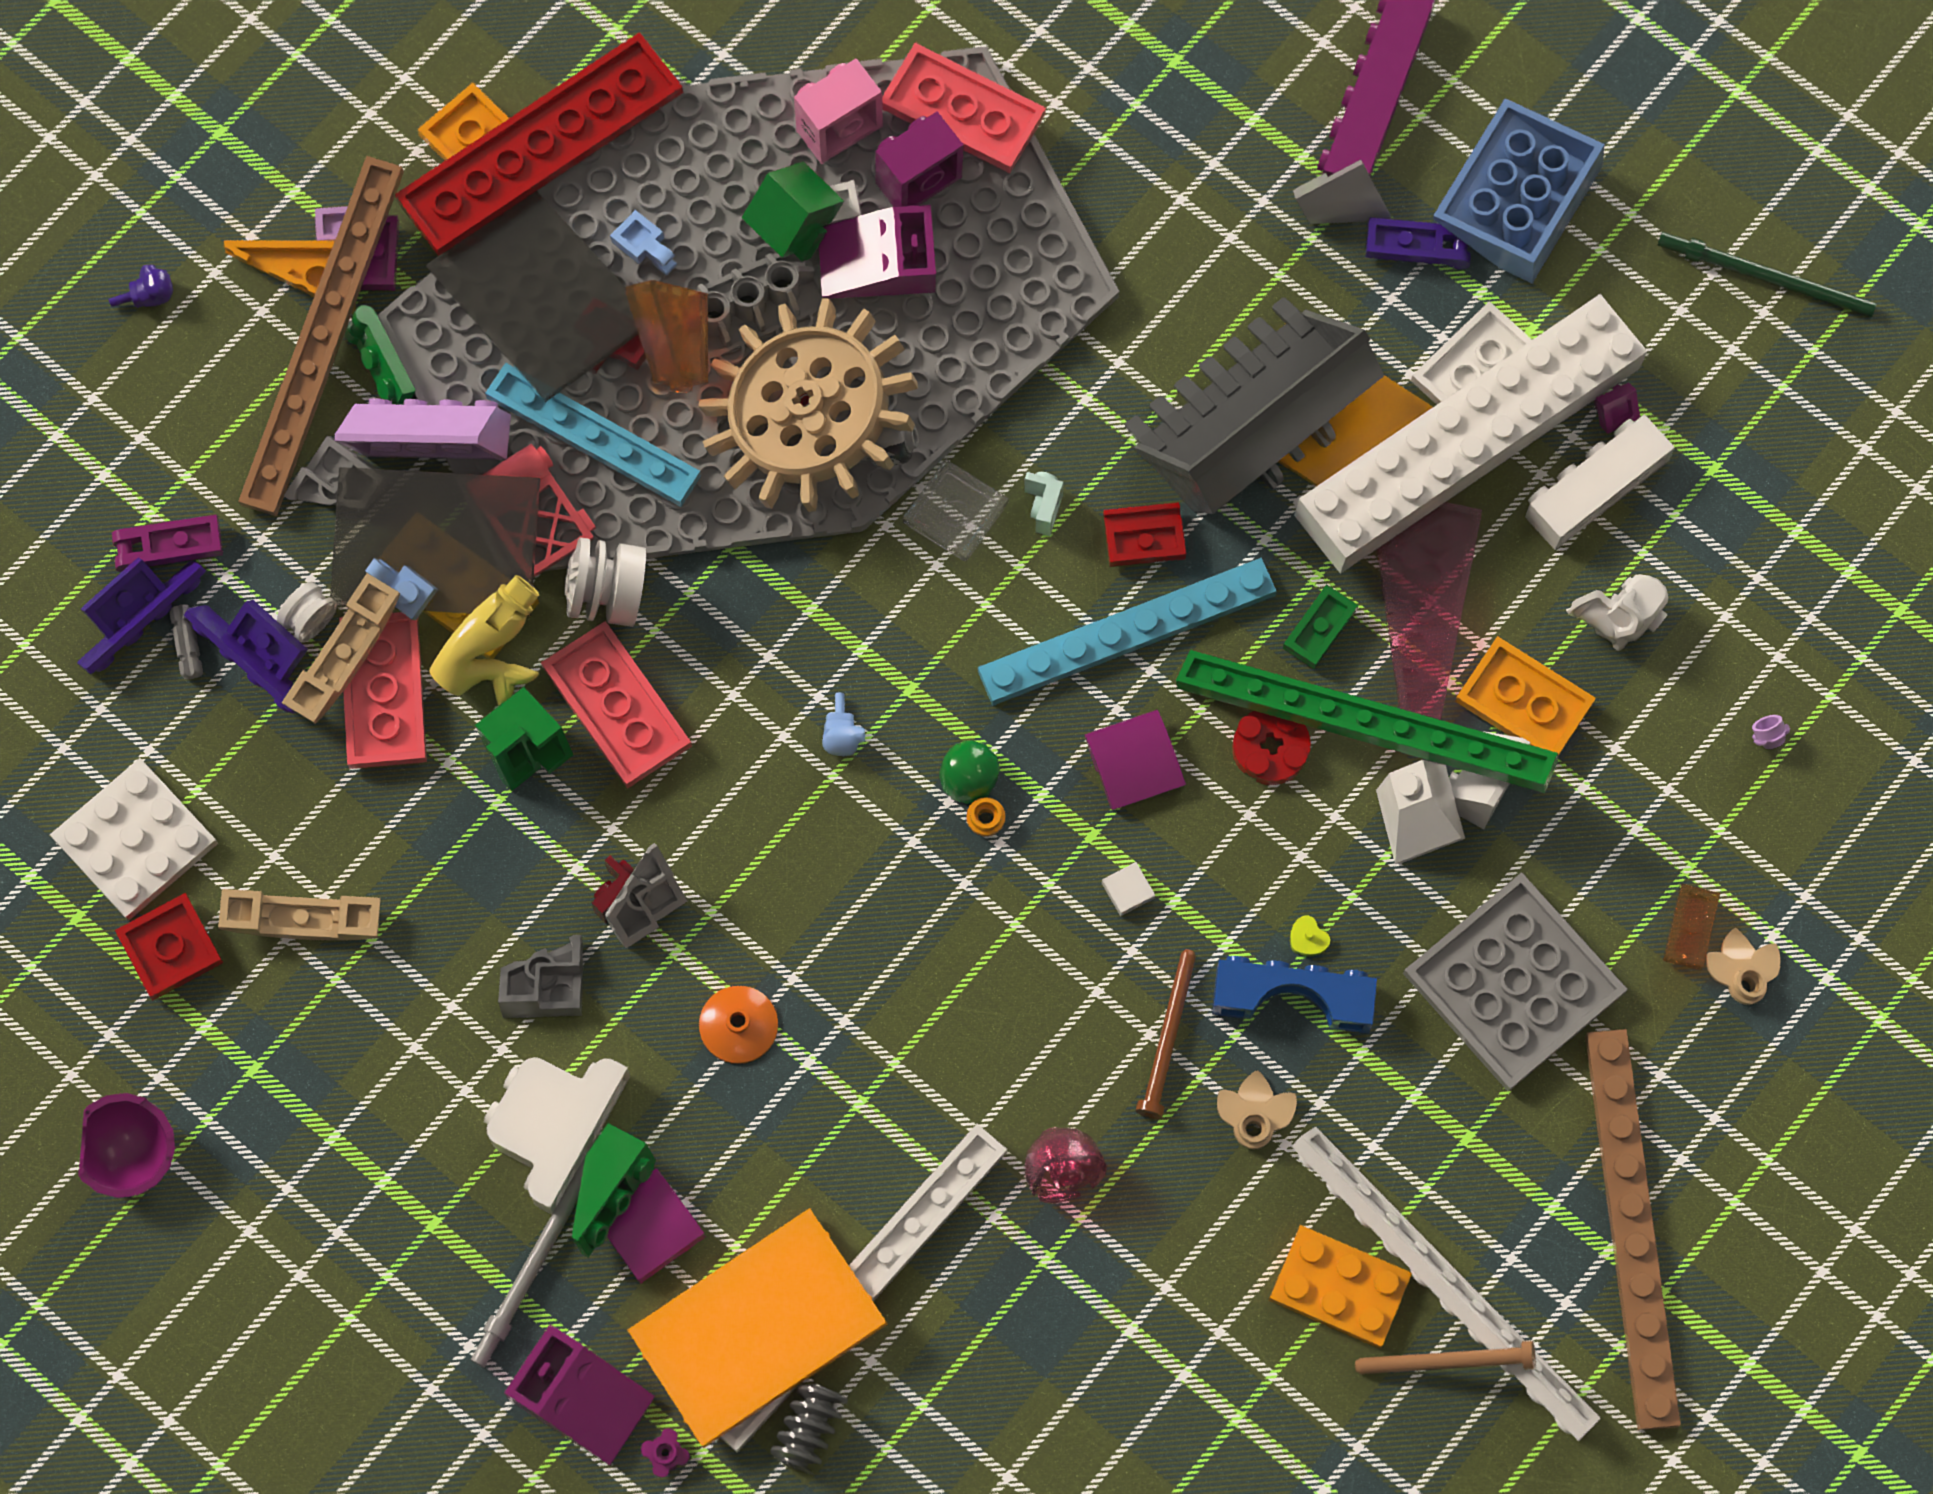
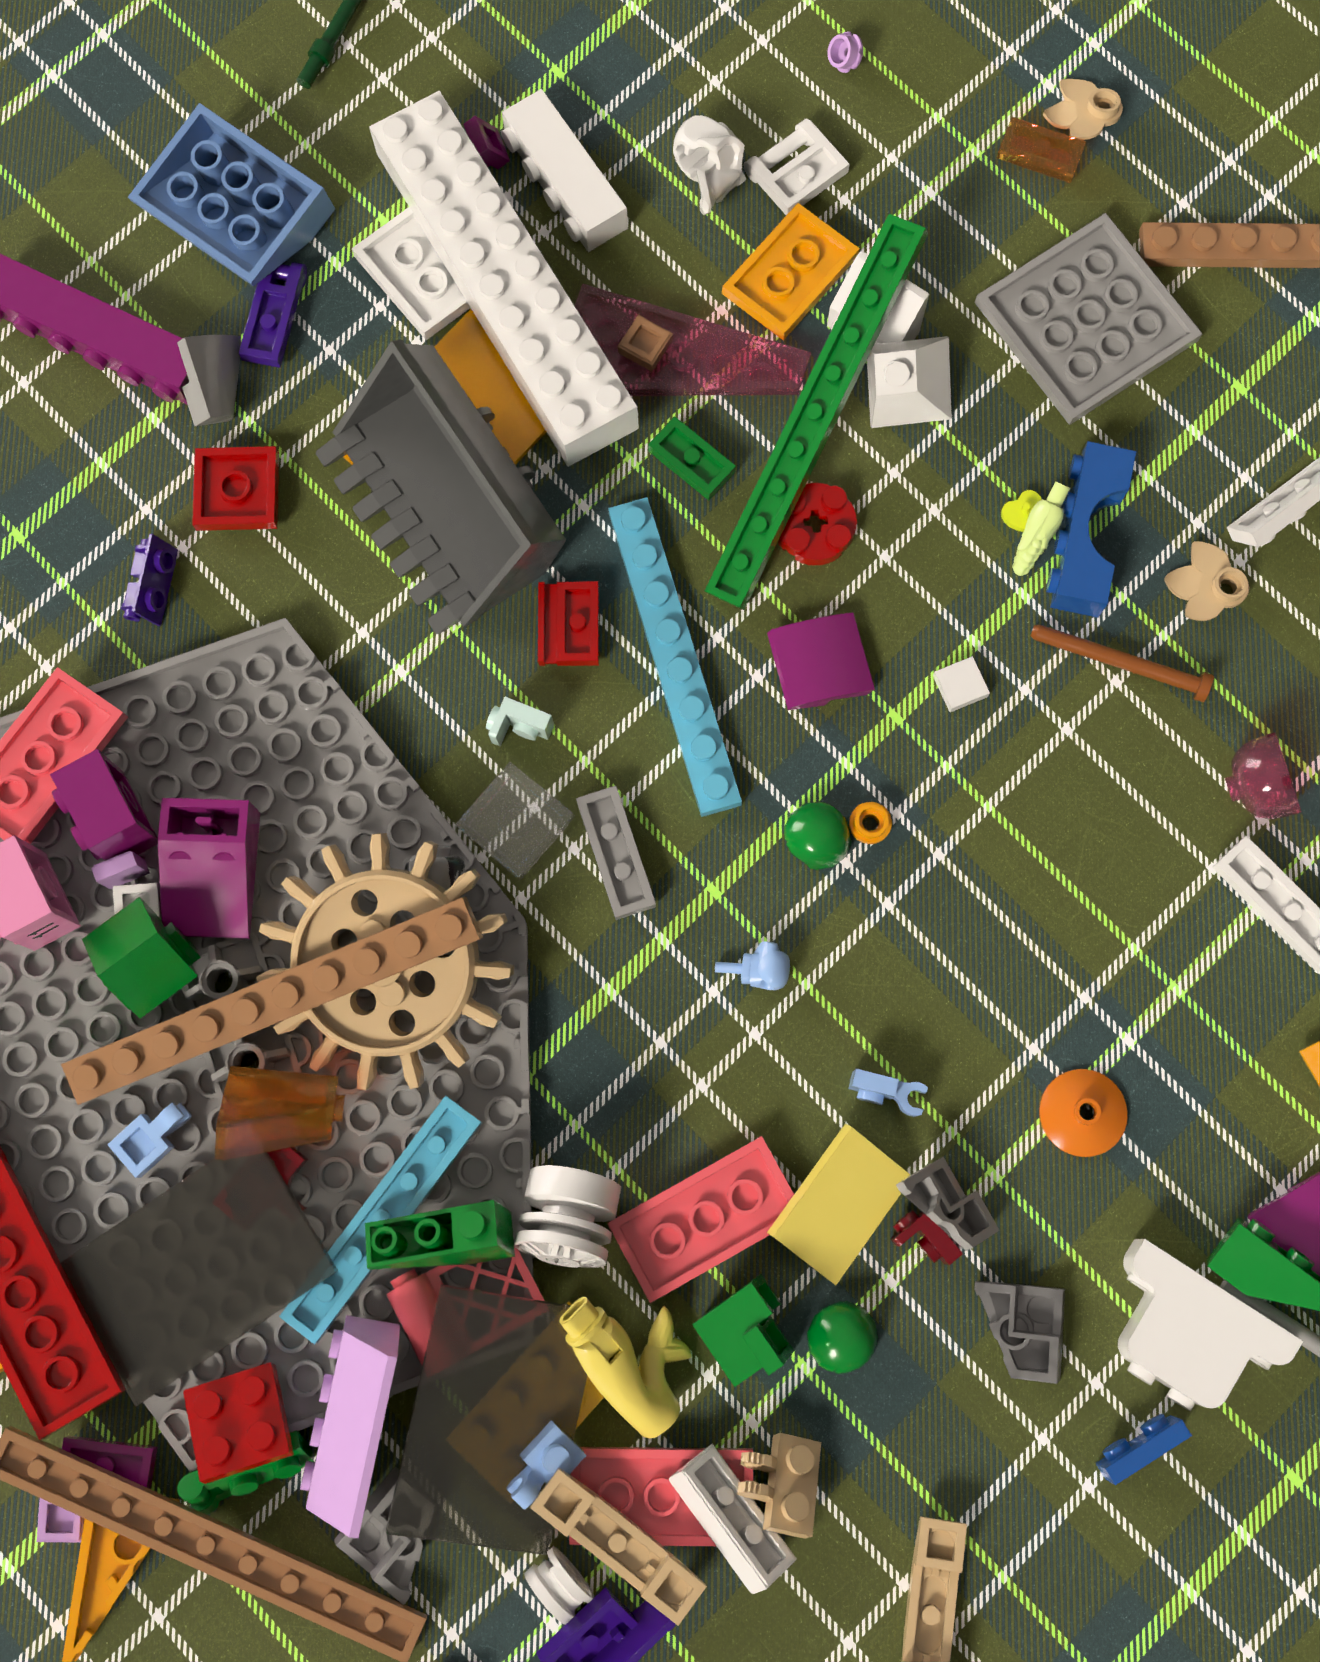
camera: 80 degrees left, 5 degrees up
(369, 744) = (732, 1520): none -> white slope
(400, 790) = (791, 1484): none -> tan hinge
(418, 344) = (238, 1423): none -> red plate
(441, 1068) = (1126, 1457): none -> blue plate
(525, 828) = (842, 1337): none -> green hair
(579, 479) = (441, 1237): none -> green slope
(636, 809) = (839, 1204): none -> light yellow tile
(742, 836) = (876, 1087): none -> light blue plate
(765, 319) = (272, 1000): none -> medium nougat plate
(870, 185) = (120, 870): none -> lavender tile
(934, 597) = (616, 852): none -> light grey plate
(1153, 178) = (154, 567): none -> dark purple hinge
(1239, 234) = (235, 488): none -> red plate
(1288, 947) = (1040, 528): none -> yellowish green piece
(1426, 570) = (645, 343): none -> medium nougat tile
(1630, 704) = (802, 176): none -> white plate

